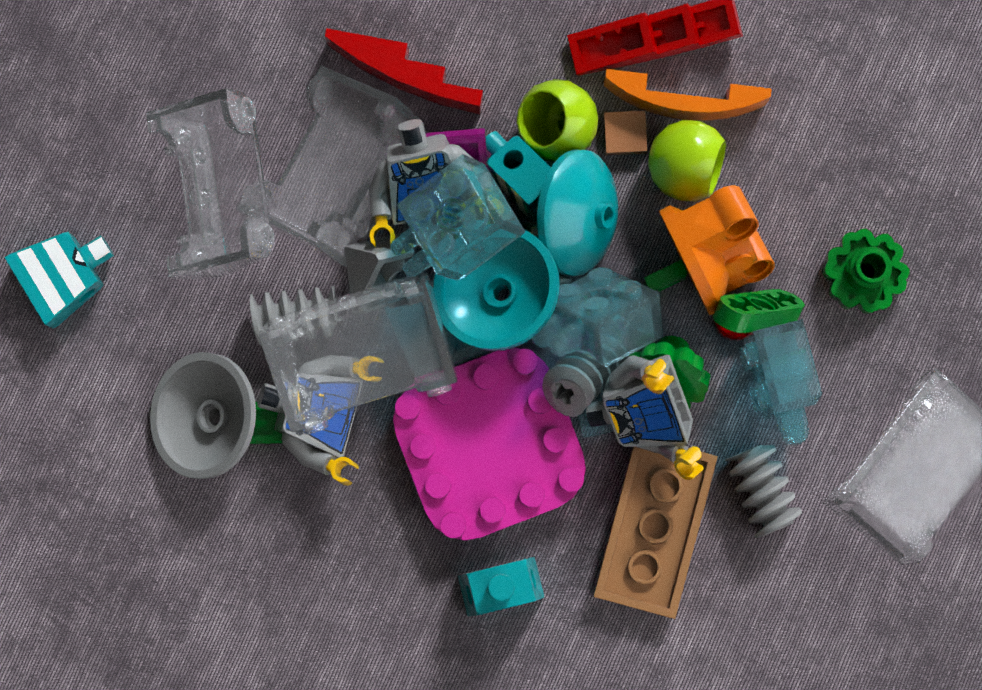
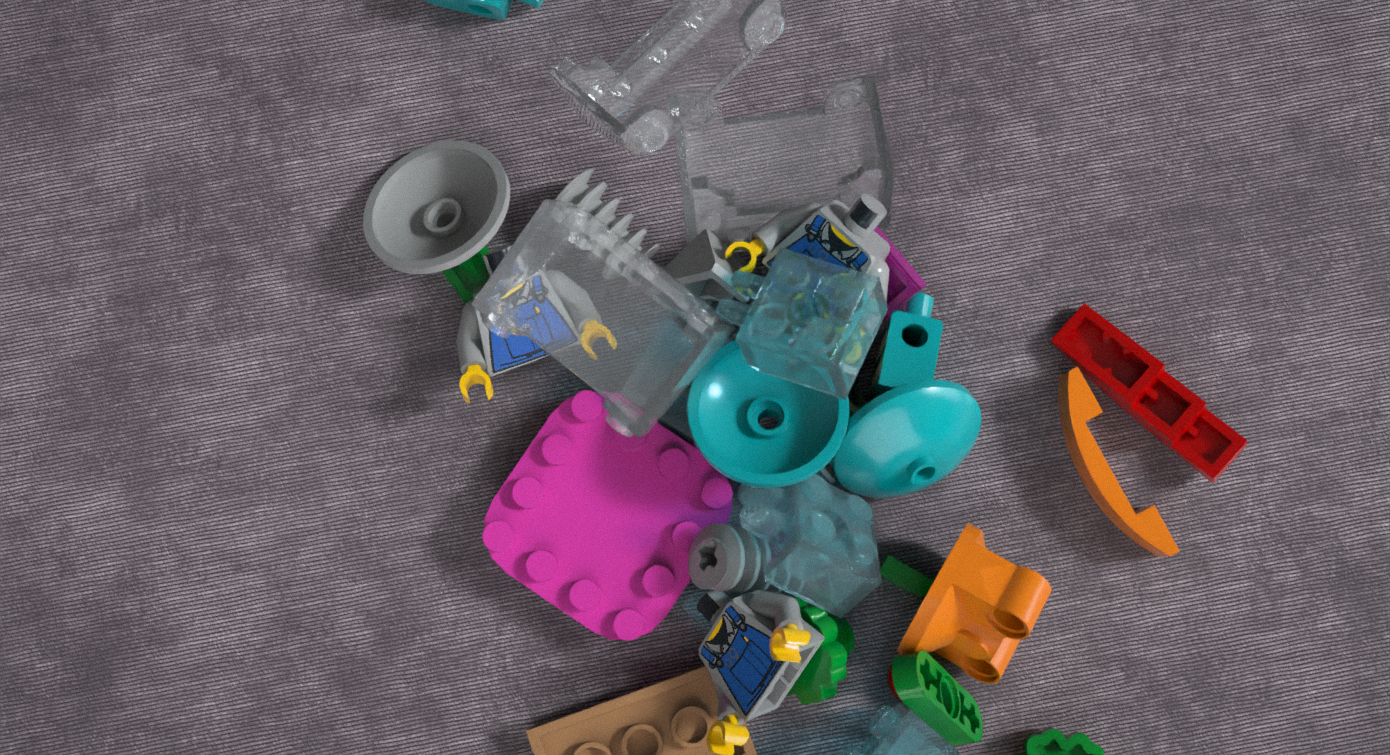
camera: 55 degrees right, 0 degrees up
(390, 63) = (927, 146): red slope -> none
(501, 587) = (471, 630): teal torso -> none
(557, 118) = (989, 352): lime helmet -> none
(625, 133) = (1026, 432): nougat tile -> none
(687, 160) = (1042, 515): lime helmet -> none

